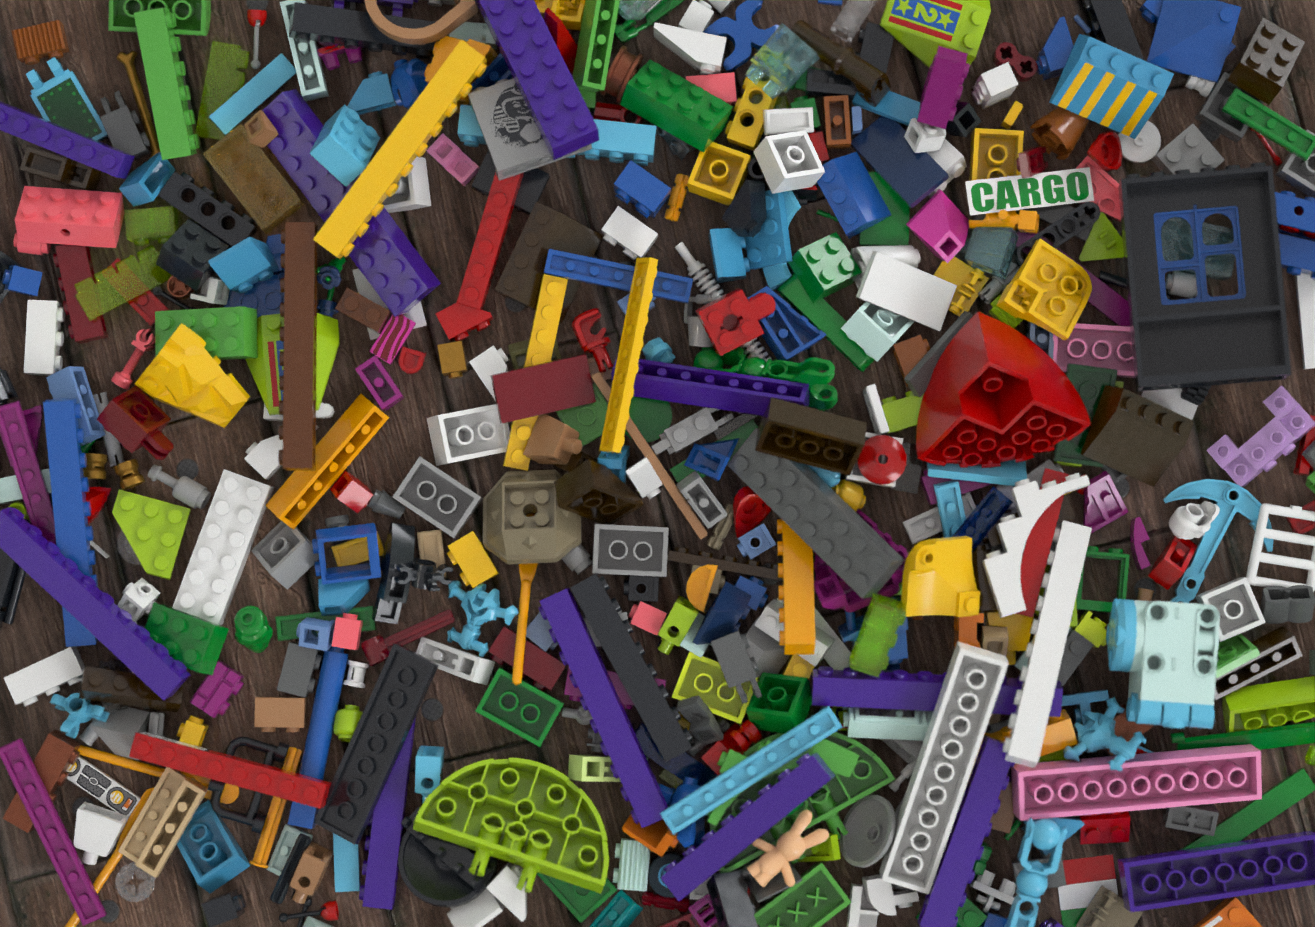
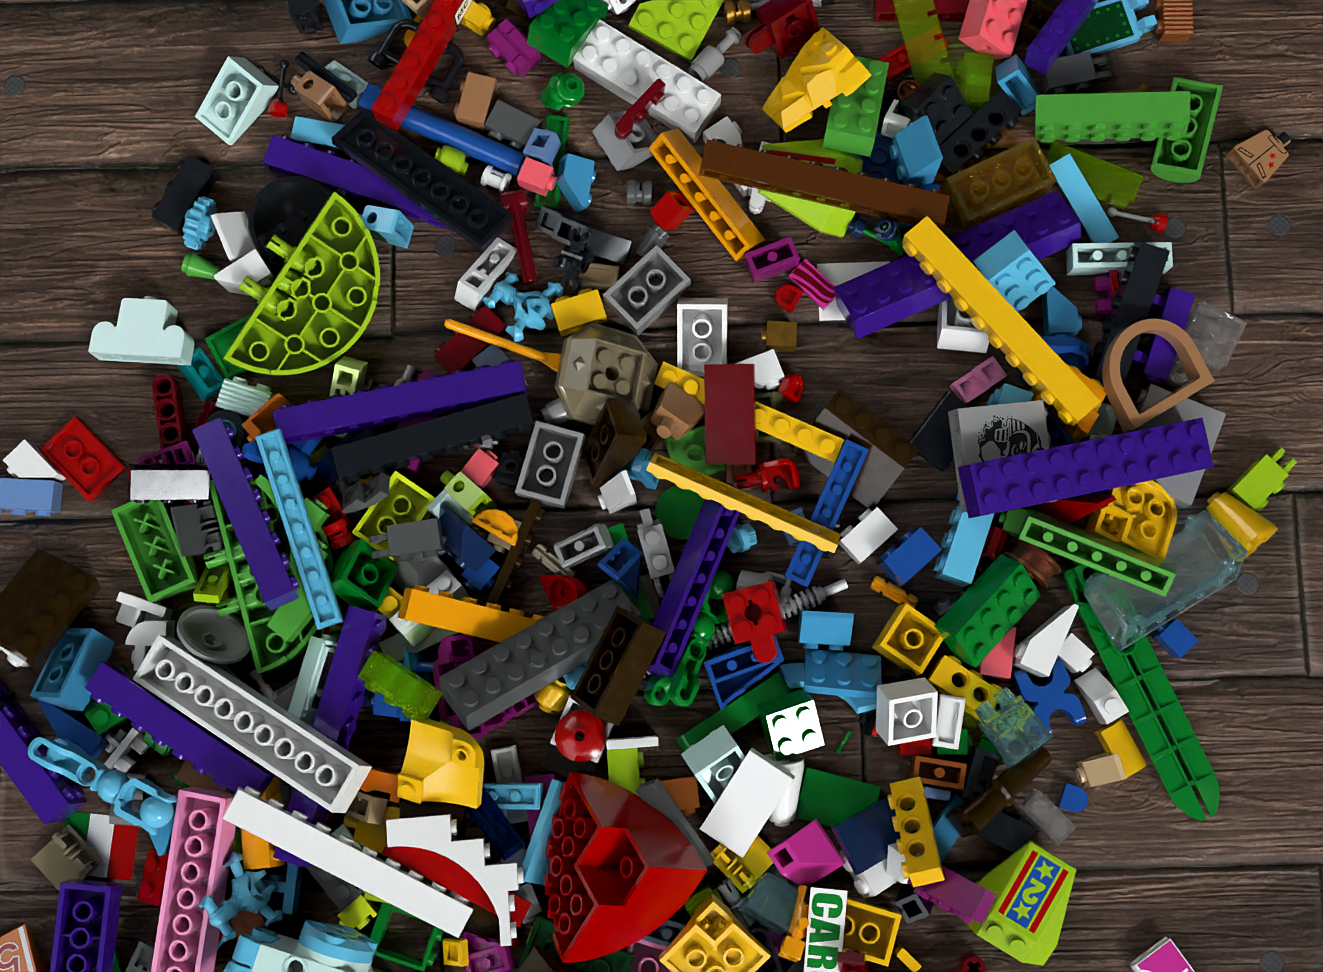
camera: 110 degrees right, 5 degrees down
(143, 345) = (858, 45): coral bar -> none
(260, 130) = (1046, 195): medium nougat slope -> none
(263, 543) = (639, 109): none -> dark red hinge
(274, 814) = (381, 76): light orange axle -> none
(351, 572) = (594, 187): blue window -> none
(354, 551) = (614, 207): yellow tile -> none
(363, 311) = (846, 259): reddish brown brick -> none
(461, 319) = (817, 352): red slope -> none
(489, 241) = (889, 394): red brick -> none
(500, 336) = (792, 387): none -> red tile
(519, 707) = (420, 324): green brick -> none
(657, 466) = (634, 507): medium nougat tile -> none
(747, 209) = (866, 658): black slope -> none
(760, 533) = (535, 599): medium blue brick -> none
(788, 848) = (214, 548): light nougat animal -> none
(852, 194) = (858, 770): blue slope -> none
(927, 112) = (922, 868): none -> yellow brick
(994, 86) = (941, 947): white brick -> none
(1104, 531) = (455, 951): none -> yellow tile

